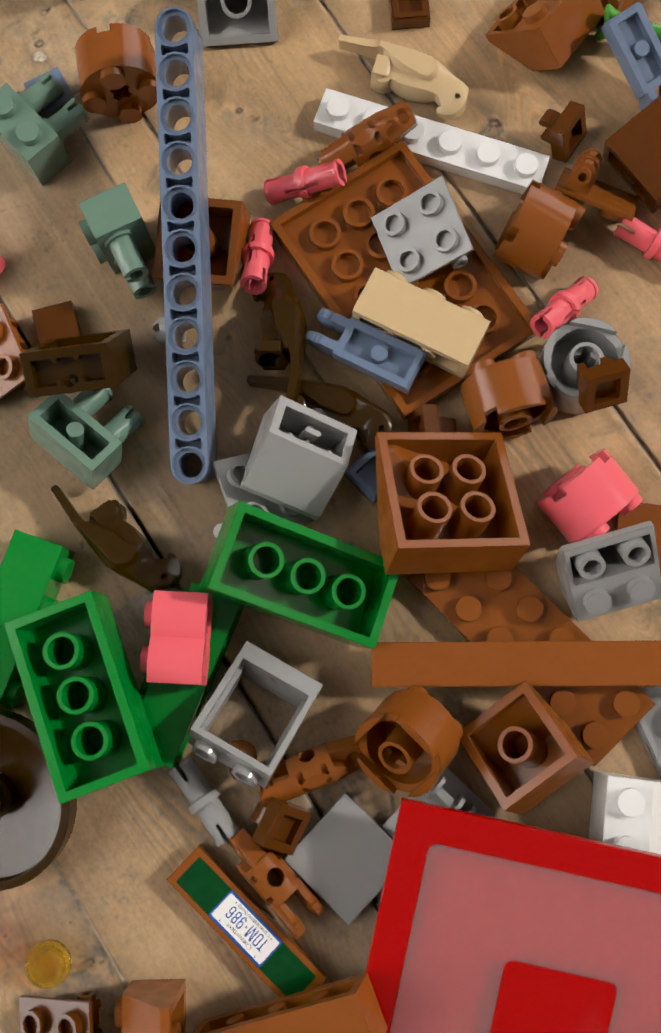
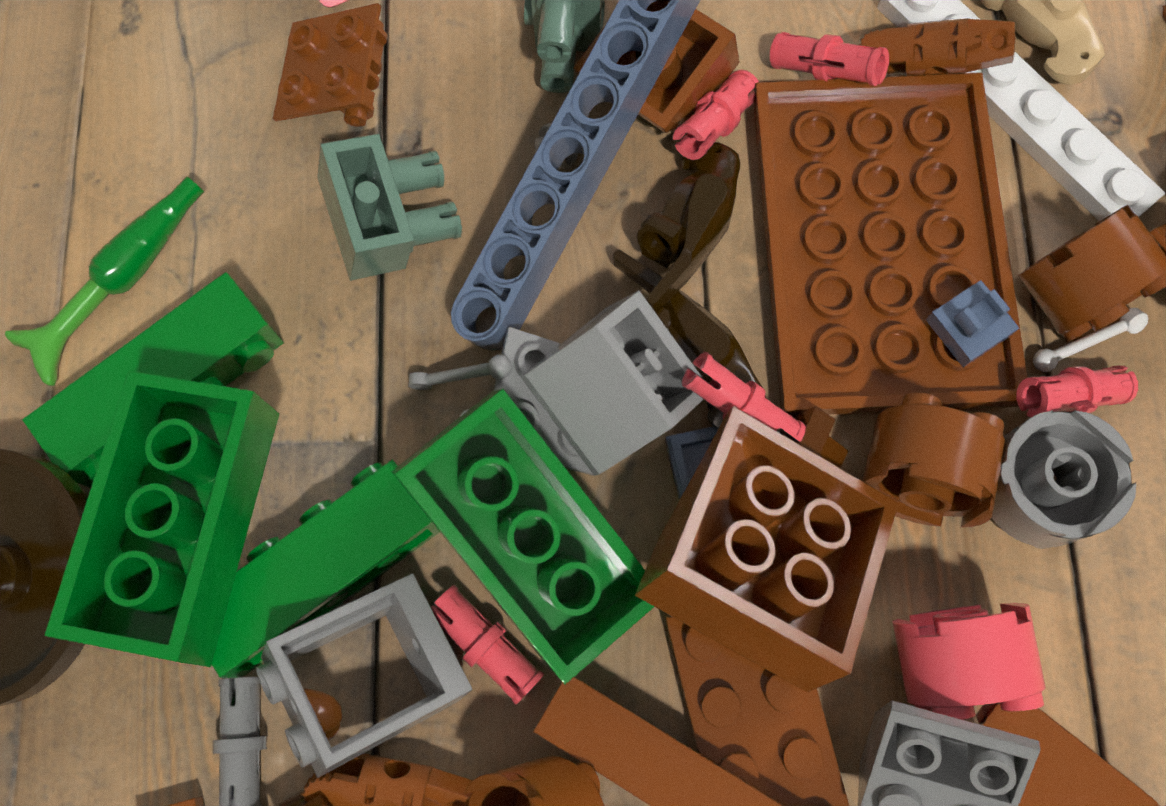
camera: 30 degrees right, 5 degrees down
(56, 321) = (430, 69): reddish brown tile -> none
(95, 359) = (420, 117): dark brown window -> none
(122, 545) = (340, 366): dark brown animal -> none
(178, 639) = (327, 518): coral brick -> none
(222, 489) = (498, 367): none -> light grey hinge
(313, 656) = (485, 644): none -> coral pin
(367, 425) = (728, 391): none -> coral pin
(369, 350) = (787, 303): sand blue hinge -> none
(423, 232) = (942, 197): light grey hinge -> none
(423, 320) = (874, 302): tan brick -> none
(486, 296) = (973, 323): none -> sand blue tile
(537, 296) = (1132, 321): none -> white hinge
(603, 384) = (1075, 517): reddish brown tile -> none

